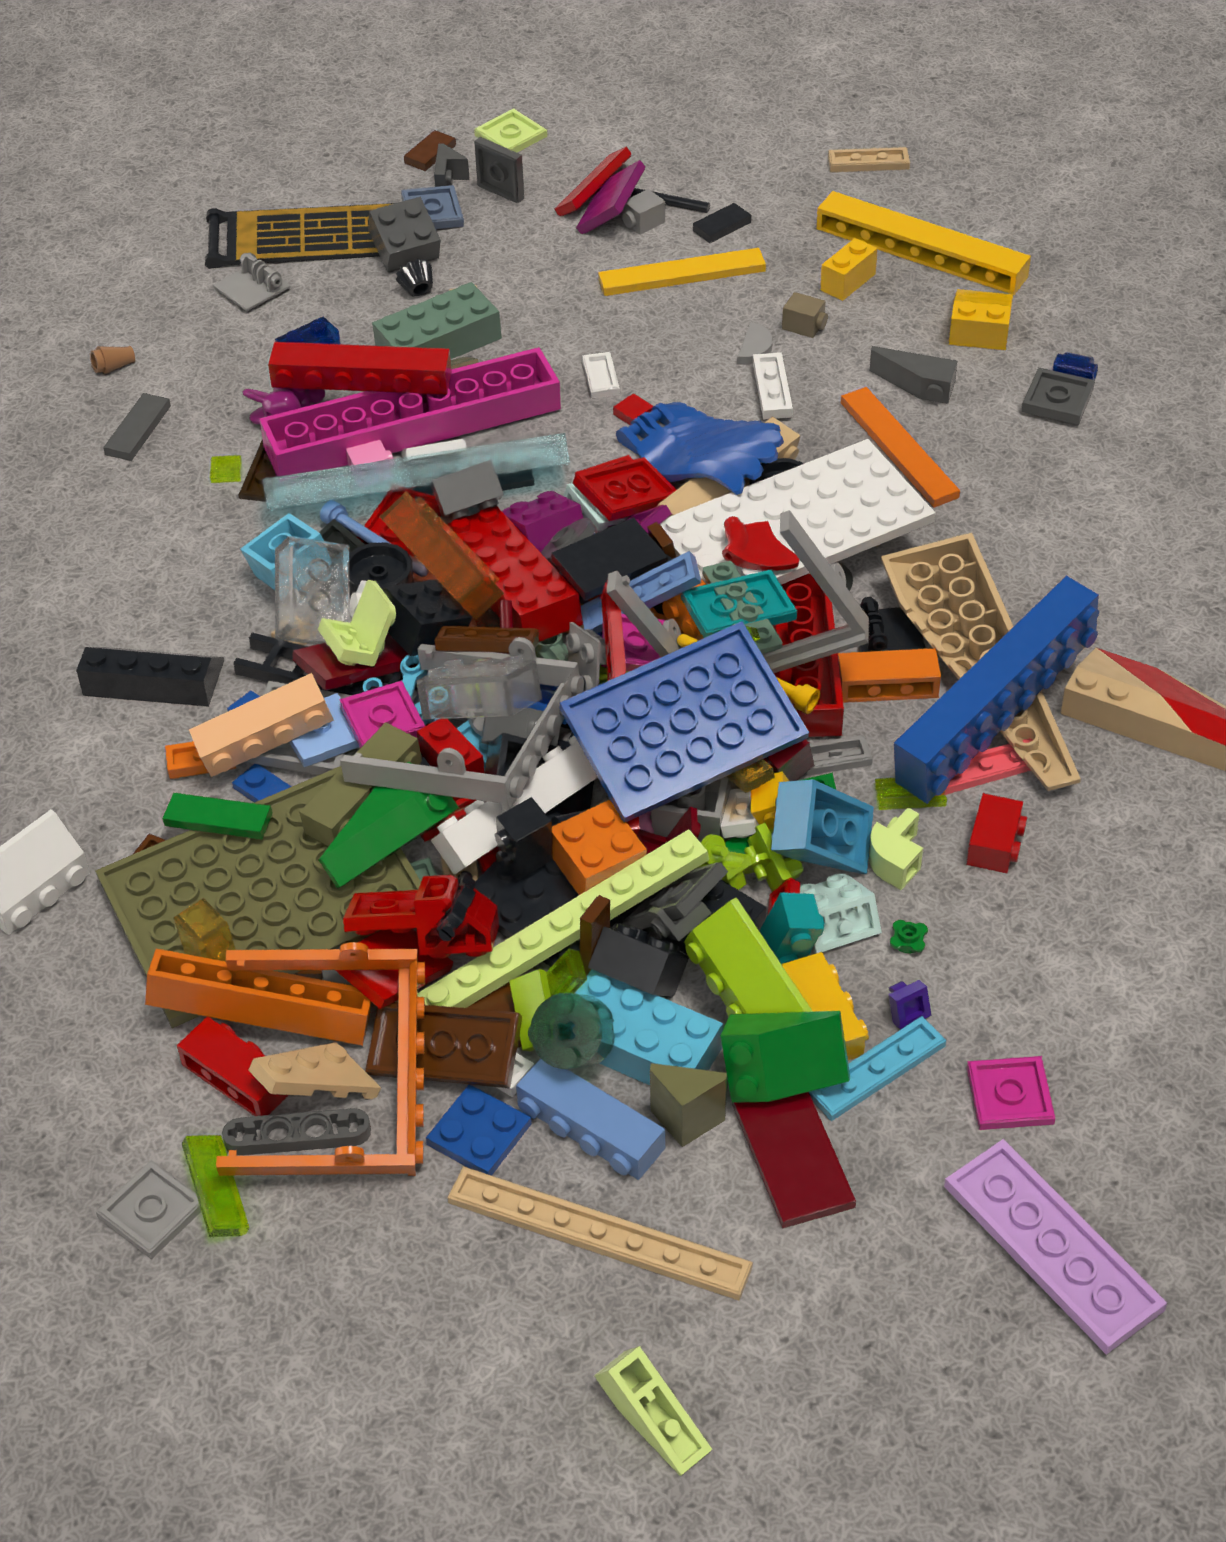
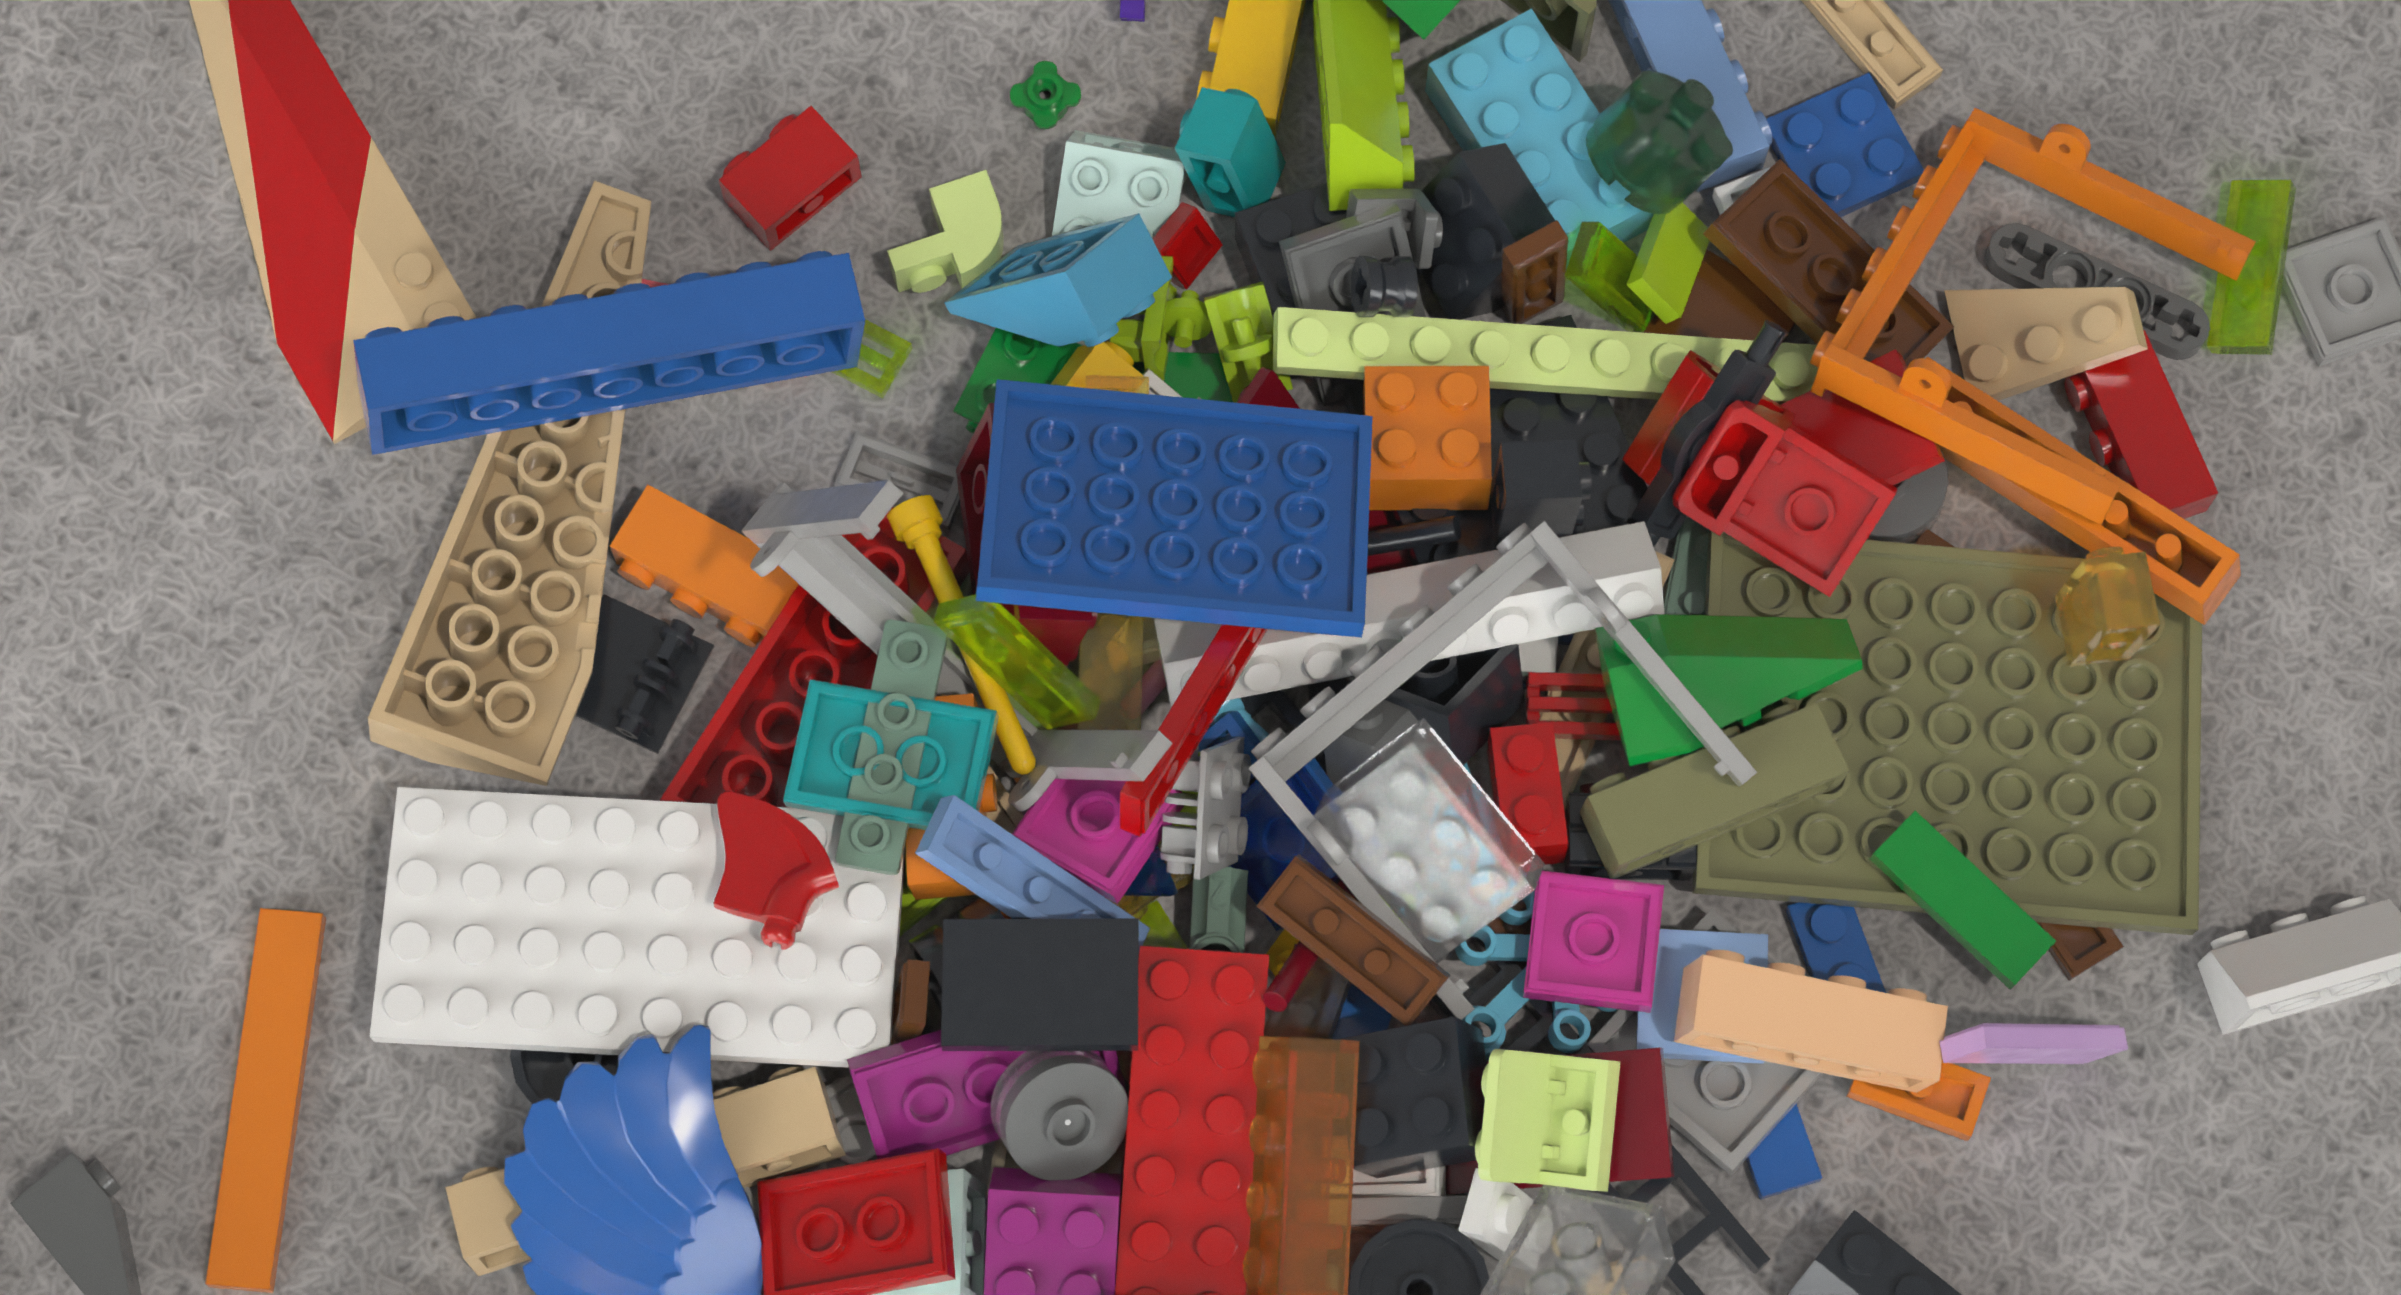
camera: 150 degrees left, 25 degrees up
(151, 772) = (2033, 1043): none -> lavender tile
(662, 882) = (1384, 286): none -> black wheel

